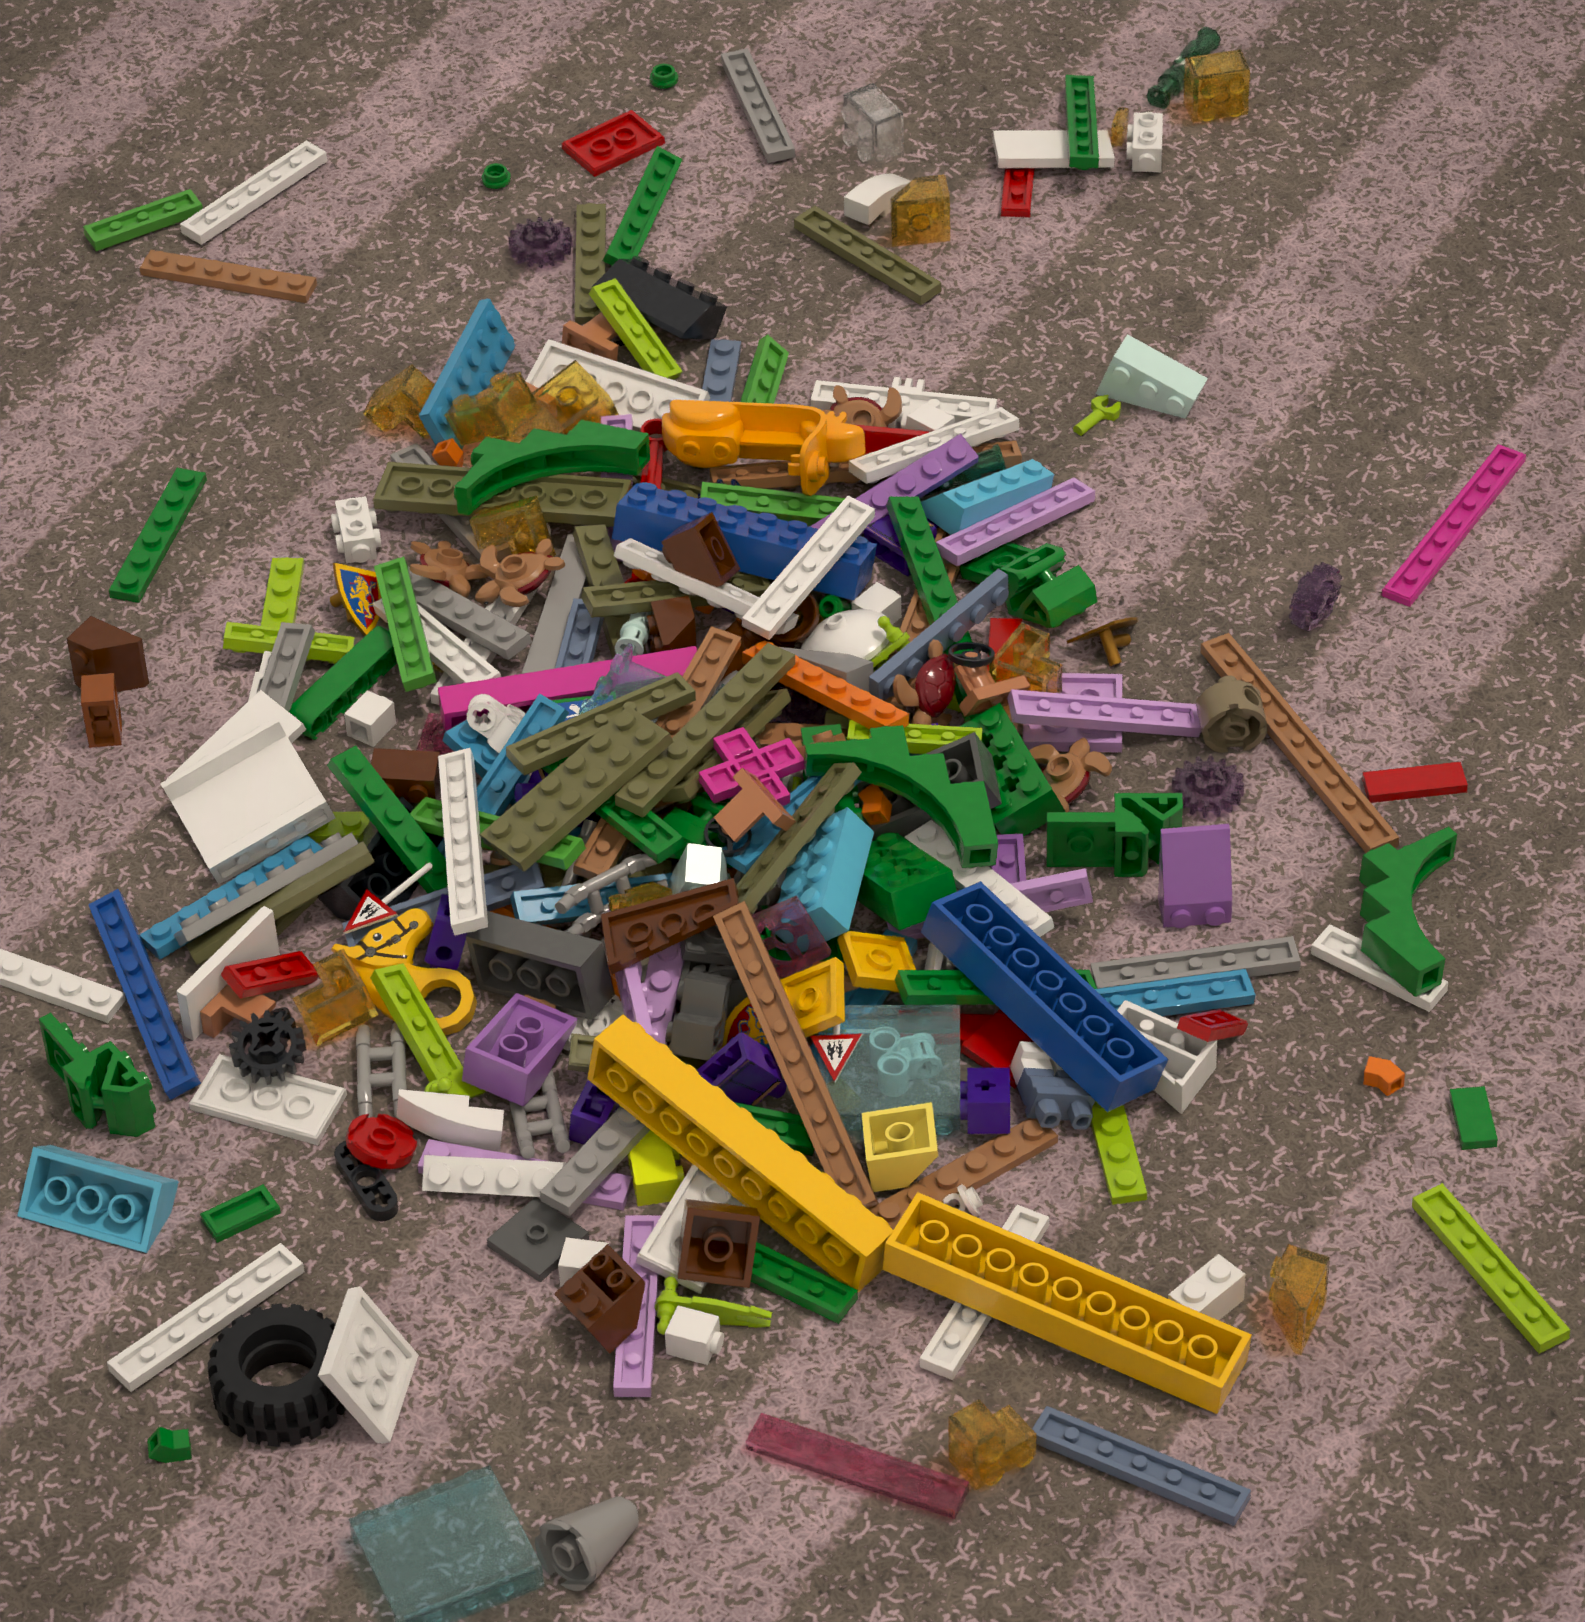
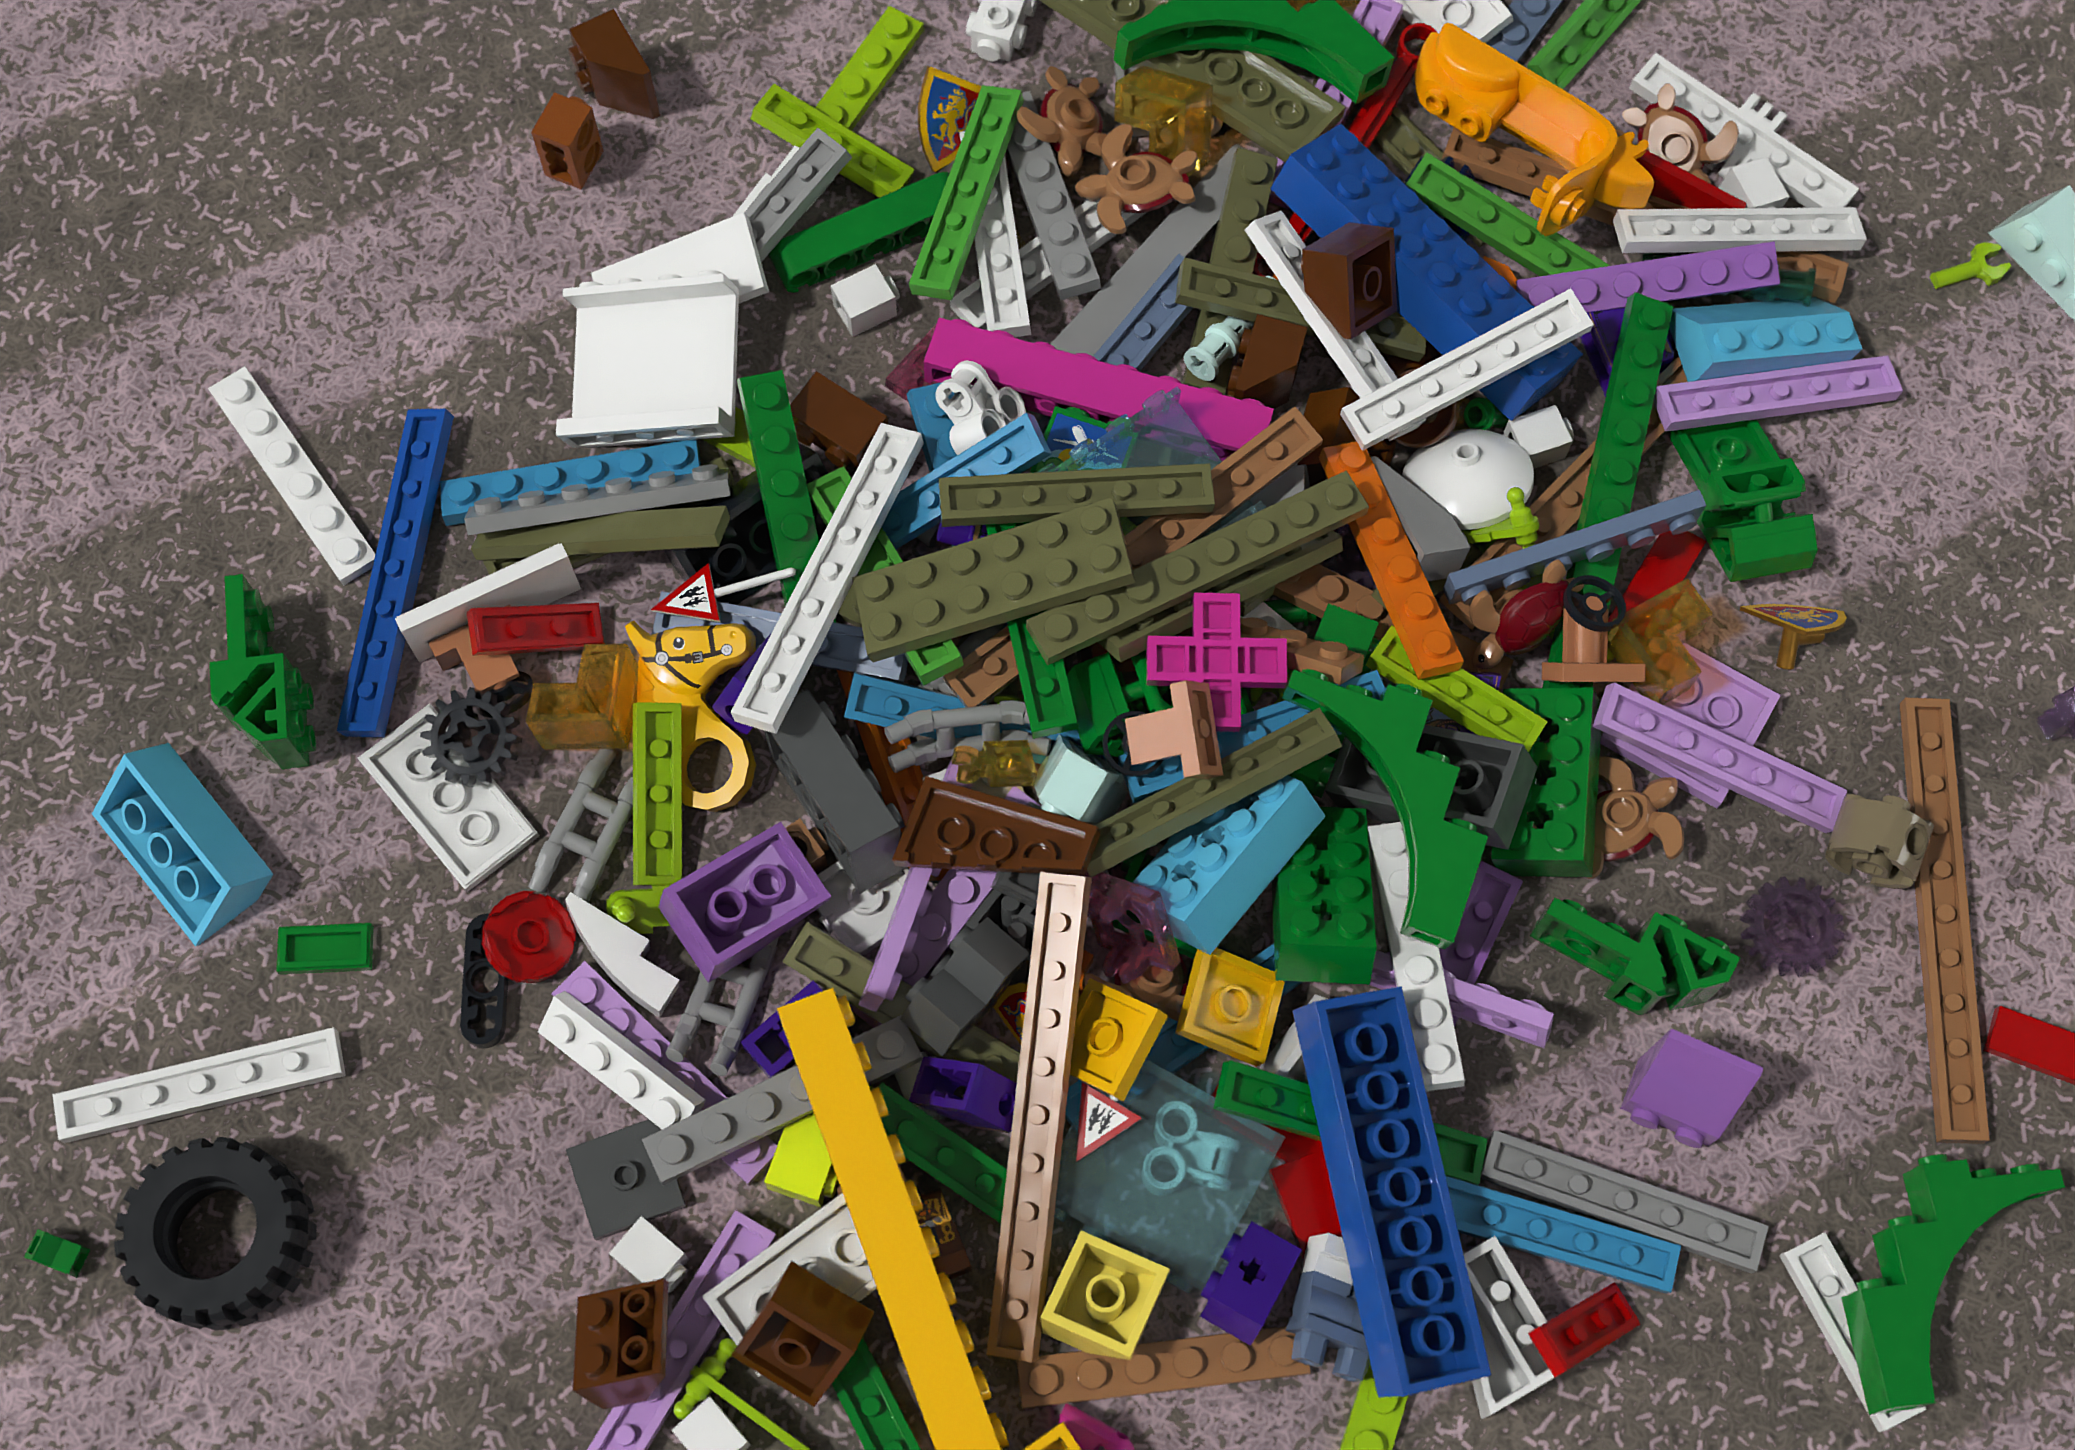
camera: 25 degrees right, 25 degrees up
(368, 1365) = (302, 1293): white plate -> none
(876, 806) = (1353, 770): orange piece -> none
(967, 1199) = (1147, 1416): white plate -> none

